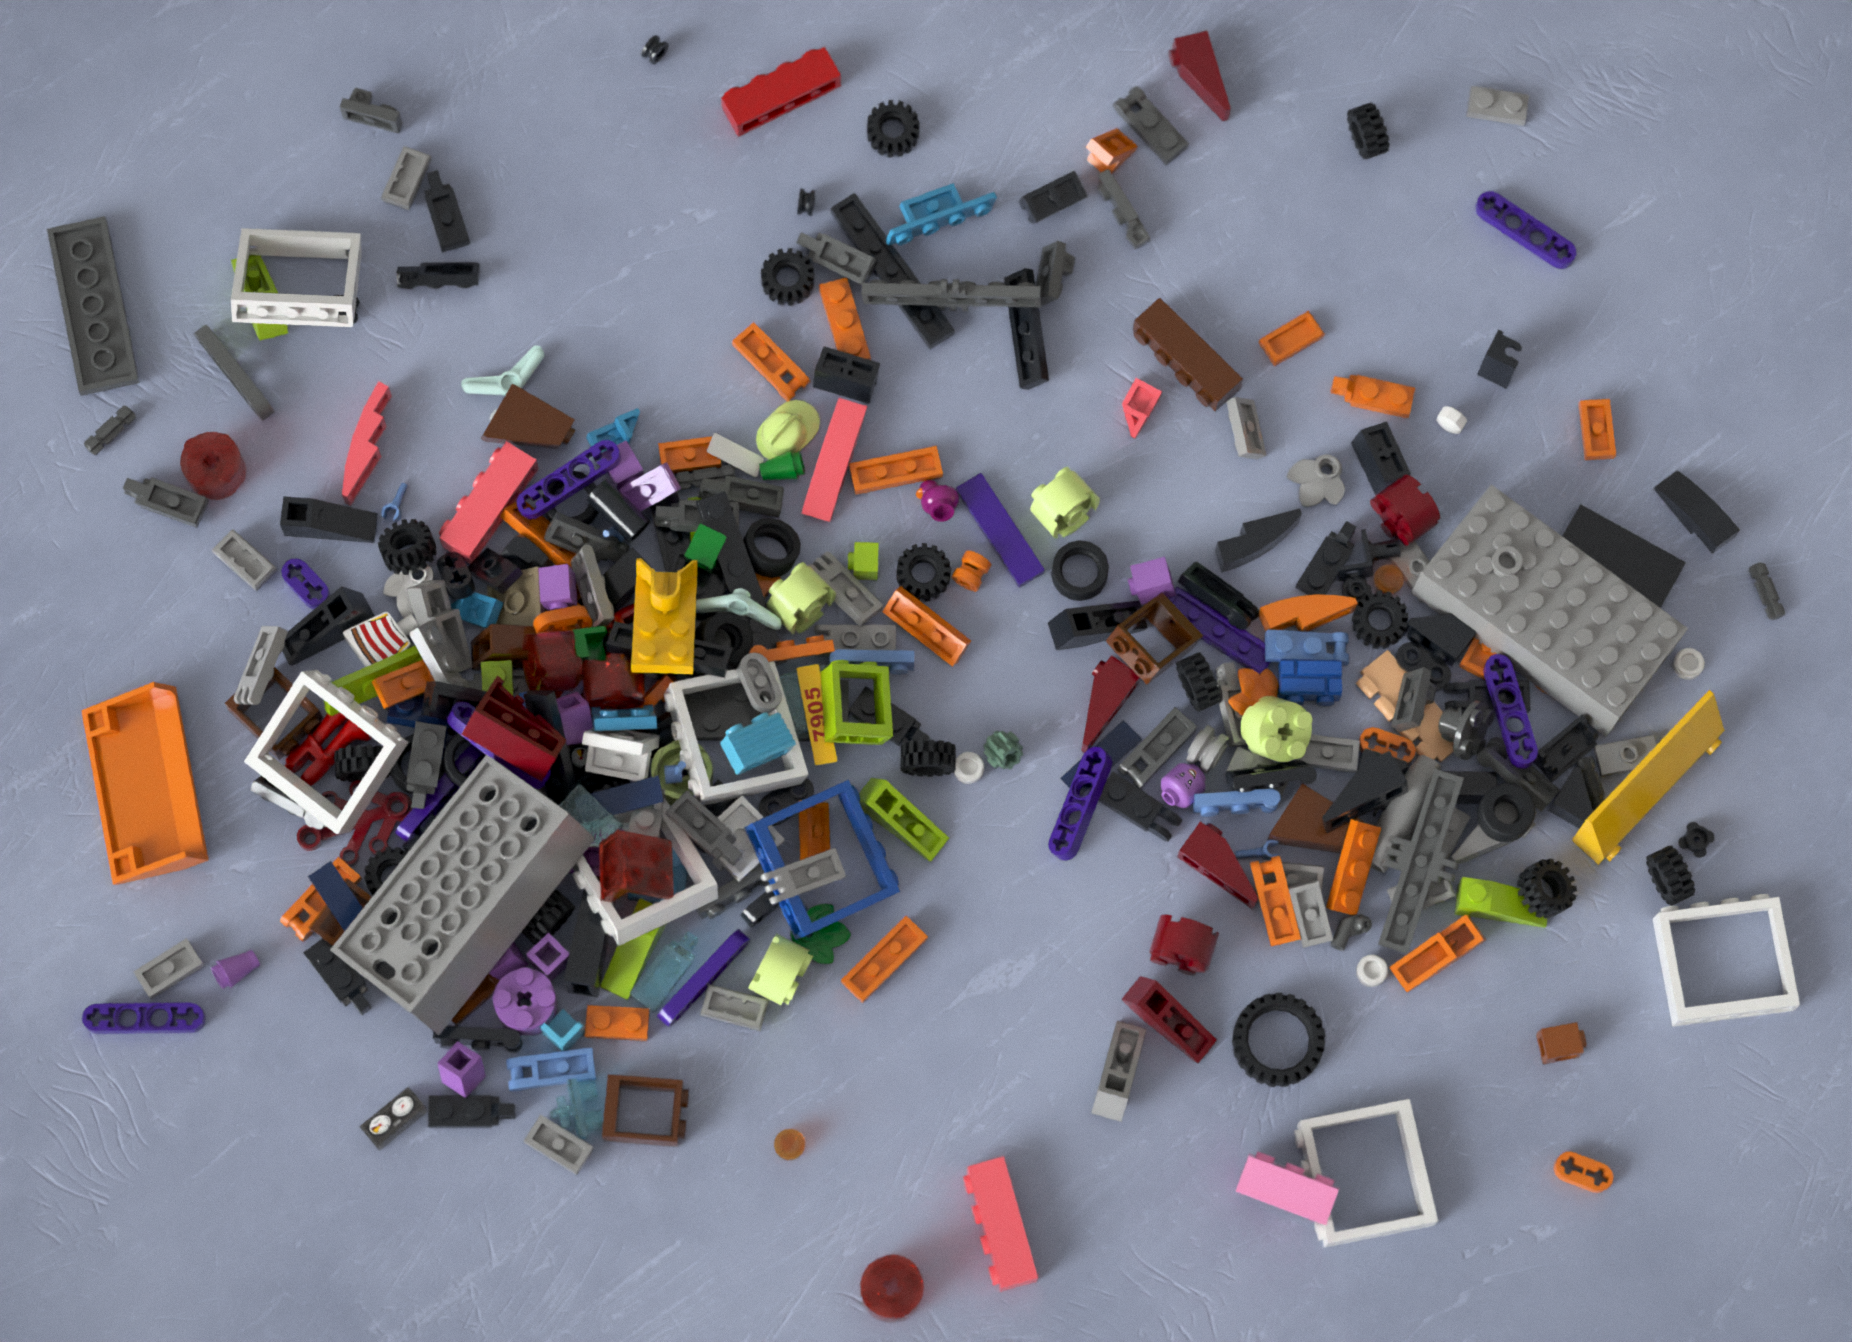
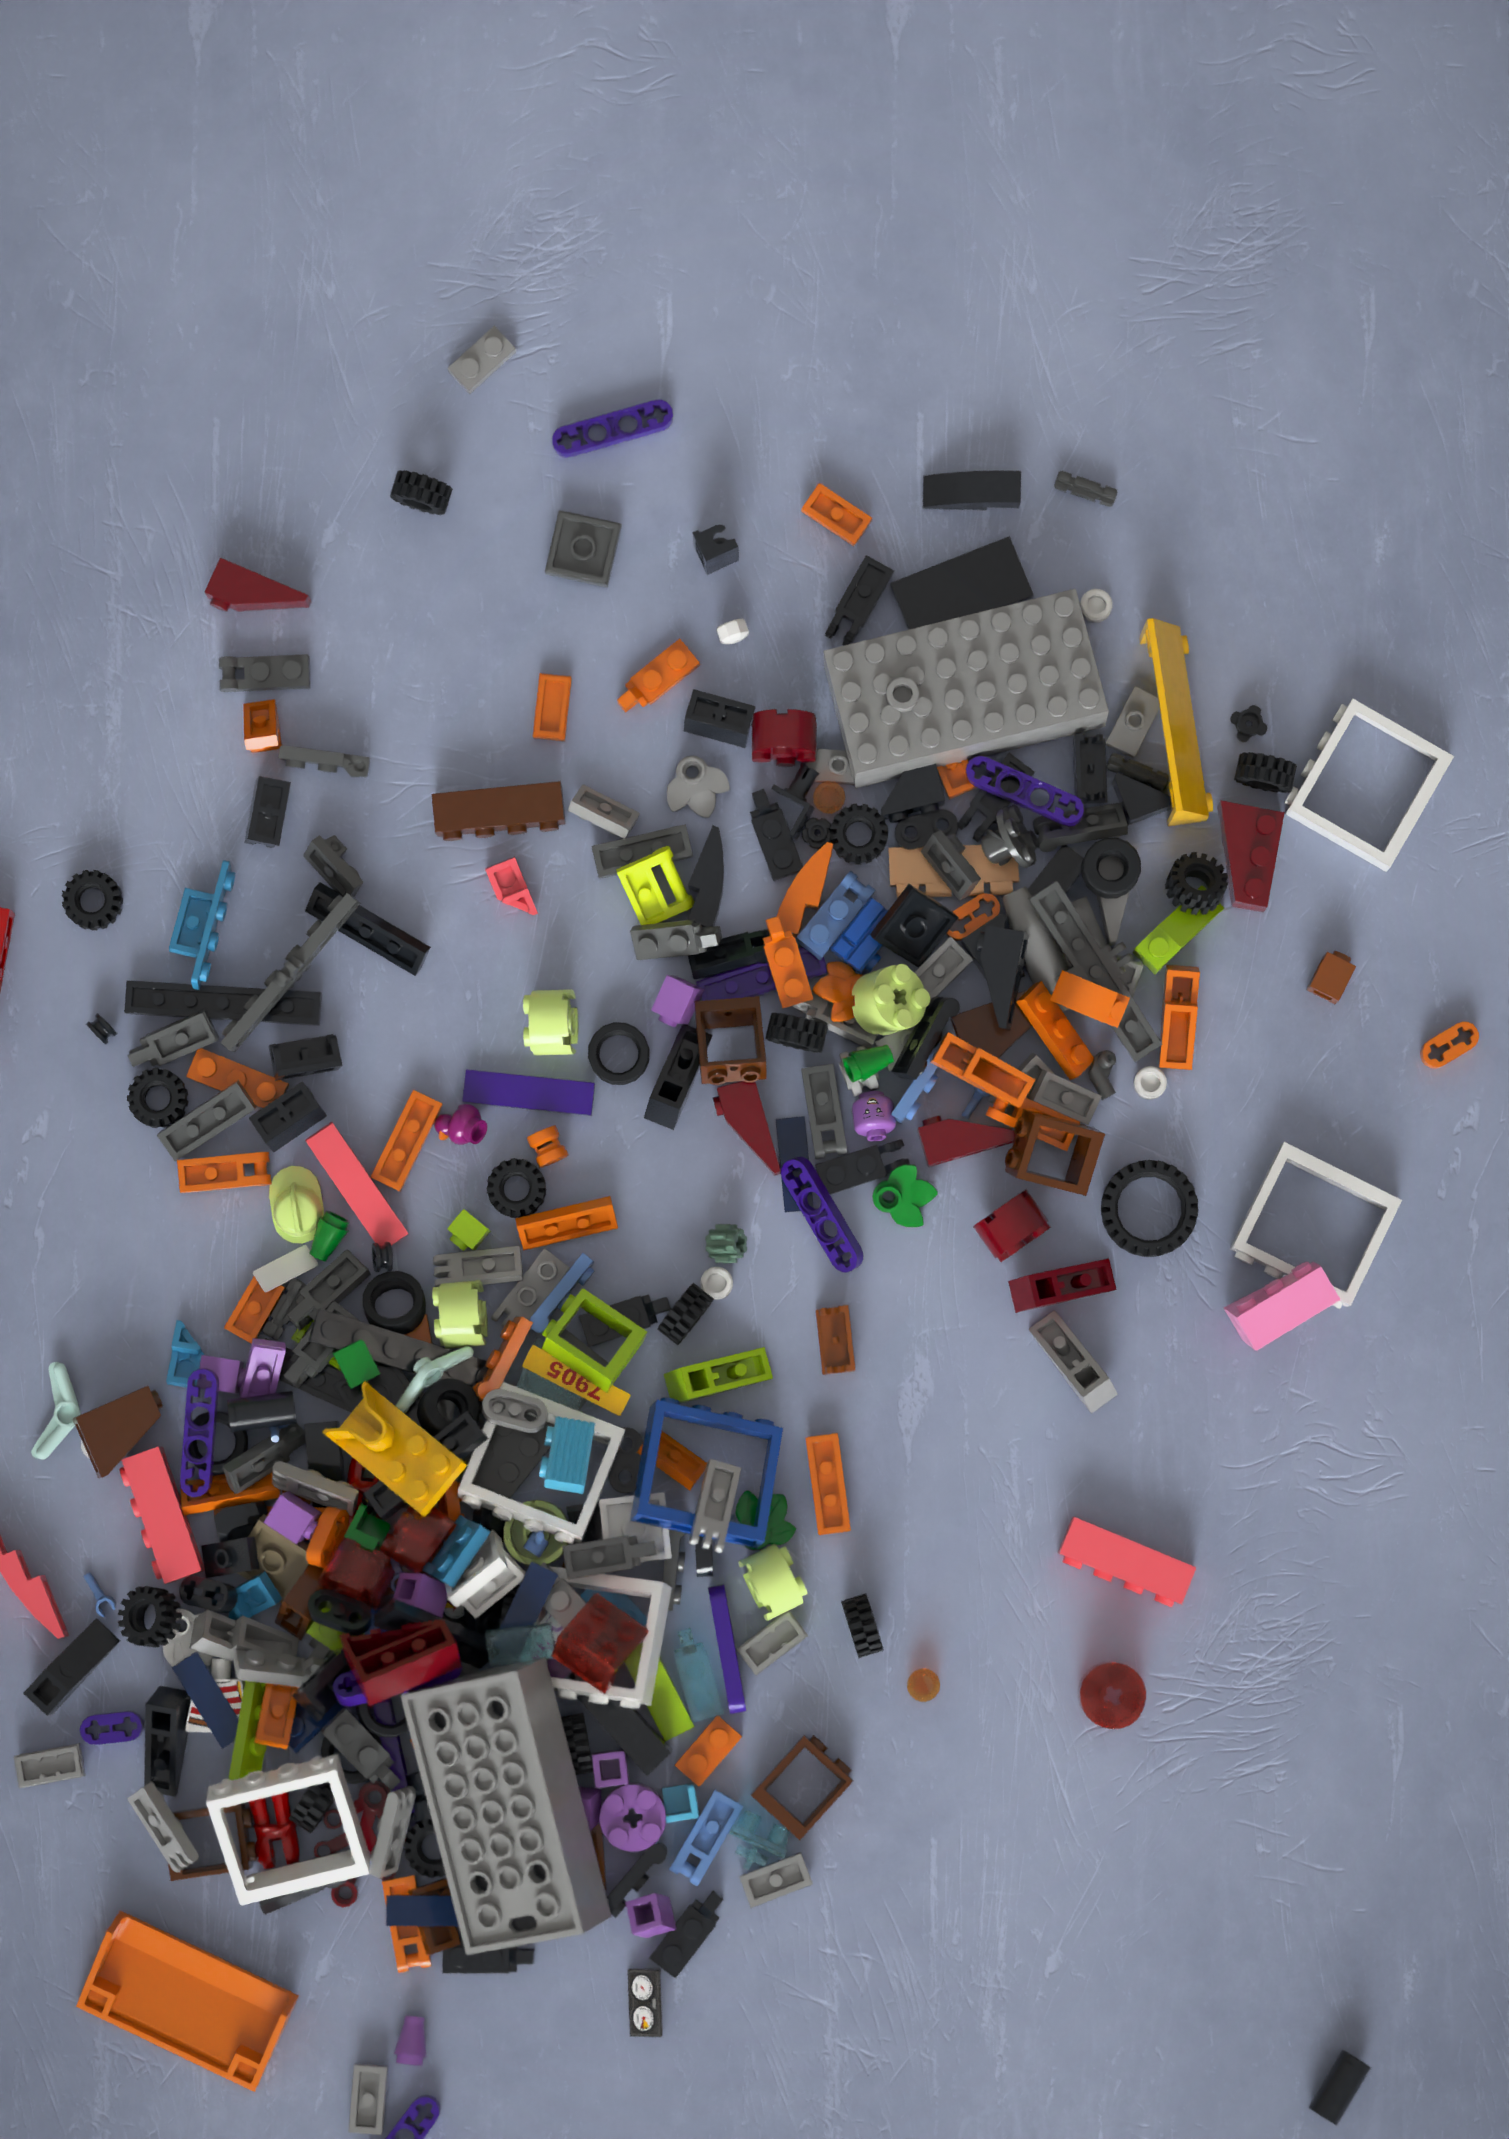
camera: 45 degrees left, 10 degrees up
(379, 629) = (208, 1698): none -> dark blue sticker
(381, 832) = (392, 1832): none -> light grey hinge
(516, 673) = (341, 1613): none -> black plate
(797, 513) = (382, 1257): none -> black bush
(798, 320) = (206, 1120): none -> dark grey plate
(798, 1061) = (862, 1625): none -> black tyre
(898, 355) = (305, 1057): none -> black hinge
(996, 884) = (835, 1340): none -> dark orange hinge
(1143, 858) = (909, 1196): none -> green plate
(1194, 544) = (673, 939): none -> dark grey hinge
(1212, 499) = (645, 891): none -> neon yellow plate
(1218, 743) = (867, 1062): none -> green cone
(1240, 477) = (621, 852): none -> dark grey plate
(1241, 635) = (786, 965): none -> orange hinge
(1275, 961) = (1082, 1160): none -> reddish brown window
(1280, 831) = (982, 1070): none -> orange slope
(1345, 705) = (914, 925): none -> black plate
(1397, 869) = (1089, 999): none -> orange brick
(1422, 273) = (583, 548): none -> dark grey plate
(1552, 491) = (860, 597): none -> black hinge
(1604, 911) = (1250, 851): none -> dark red wedge

